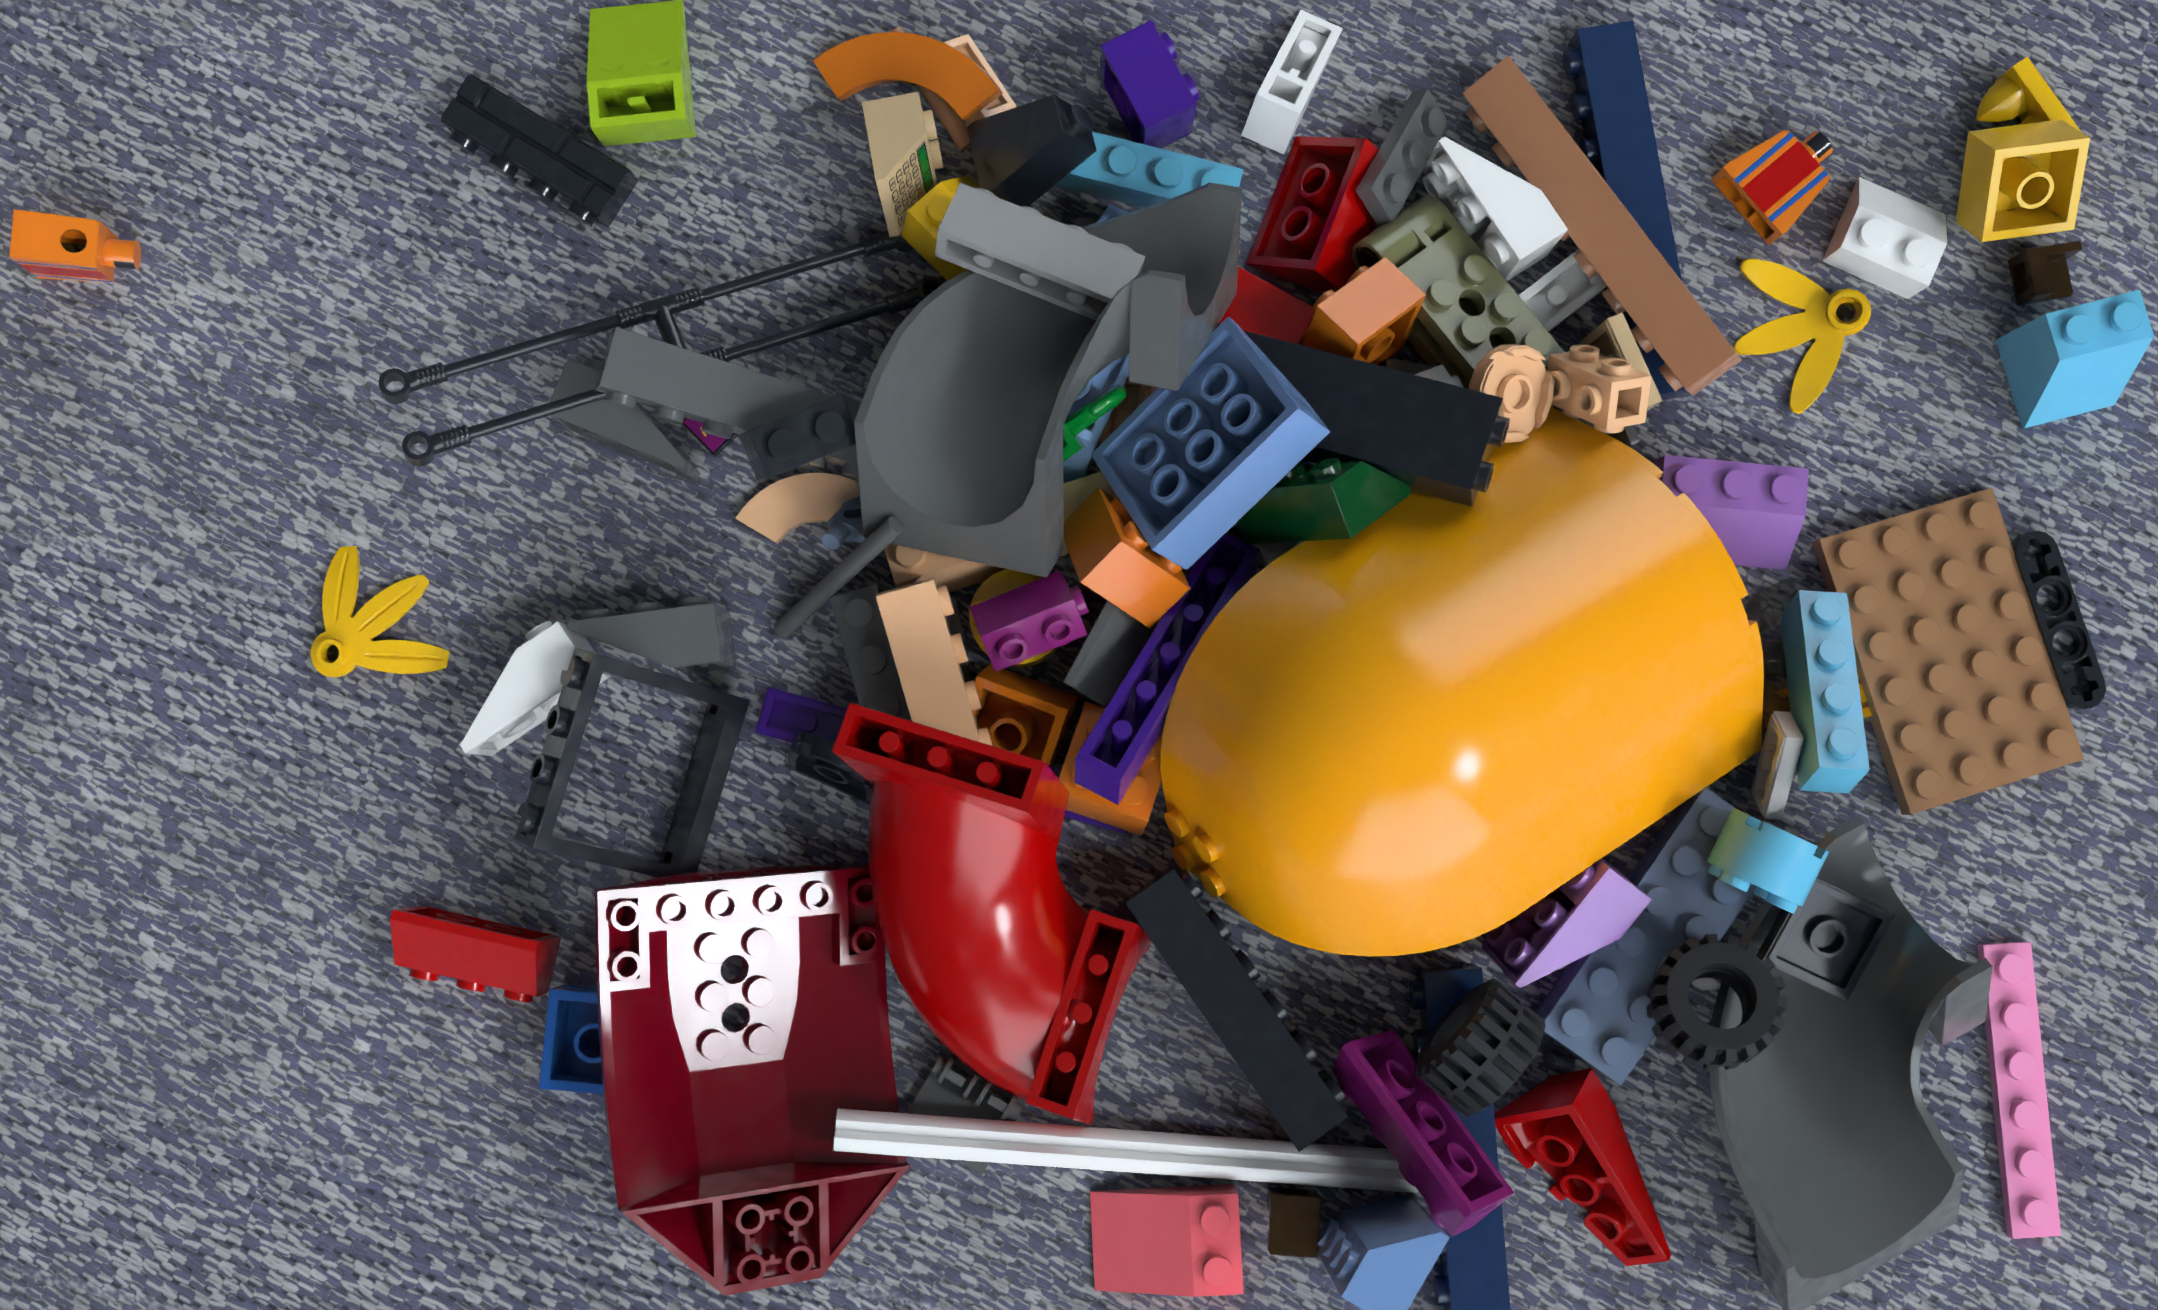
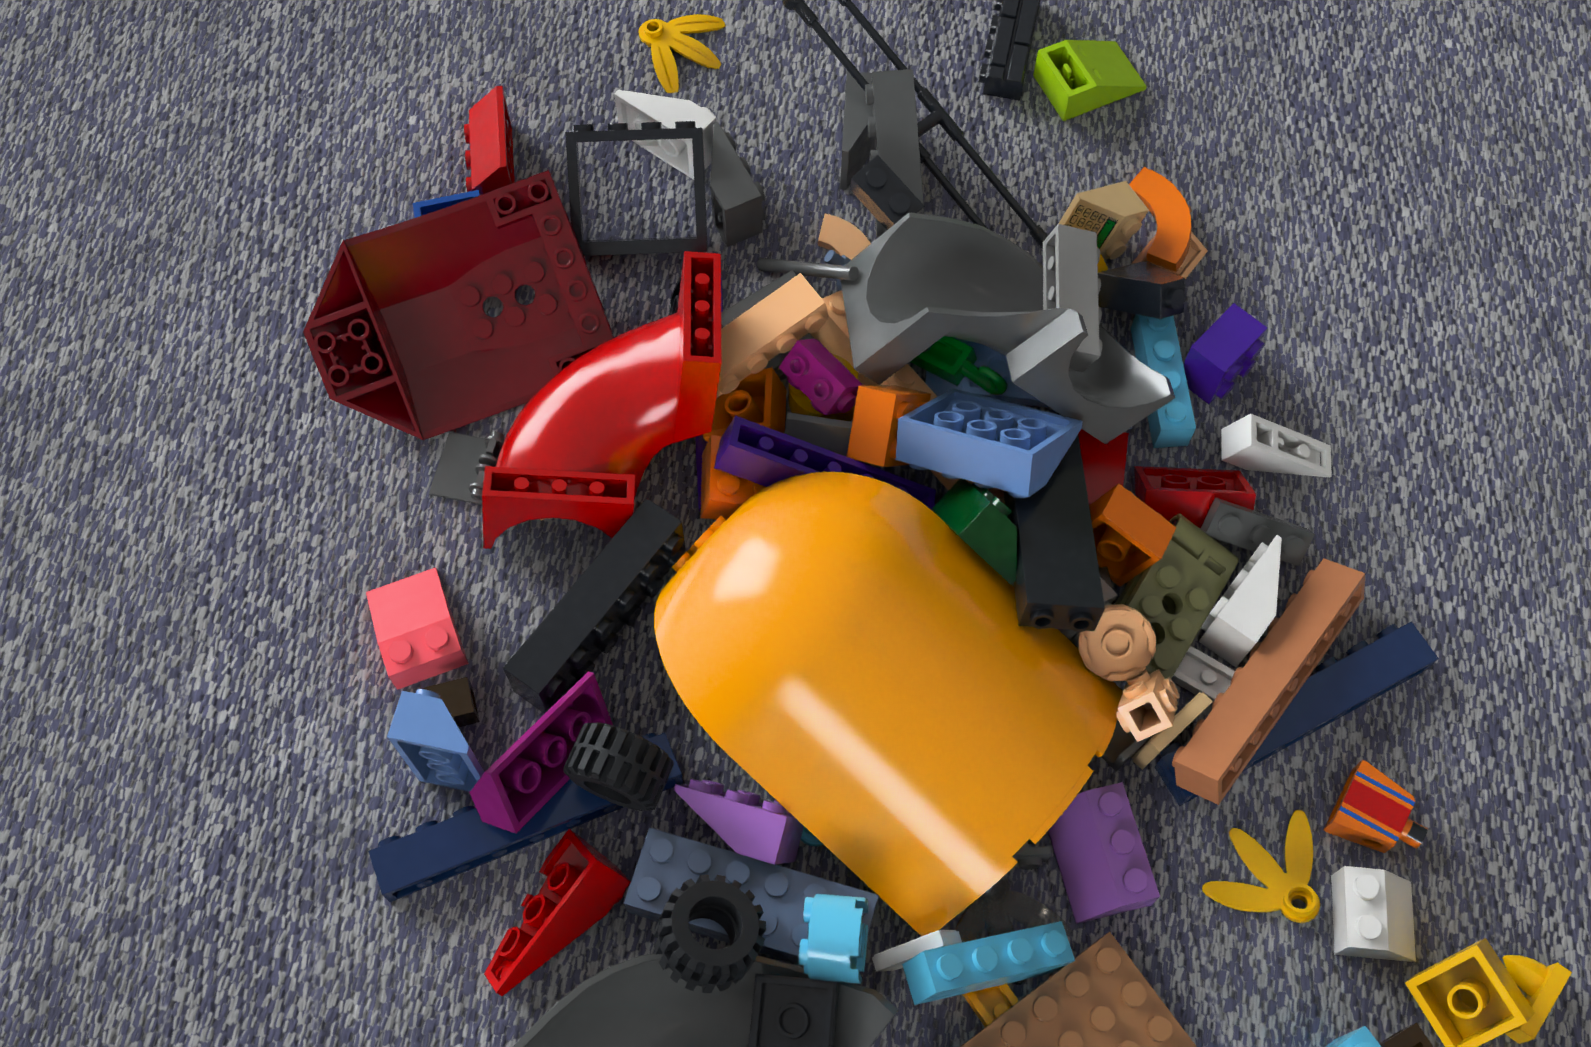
camera: 70 degrees right, 20 degrees down
(1117, 1150) = (470, 566): white axle -> none

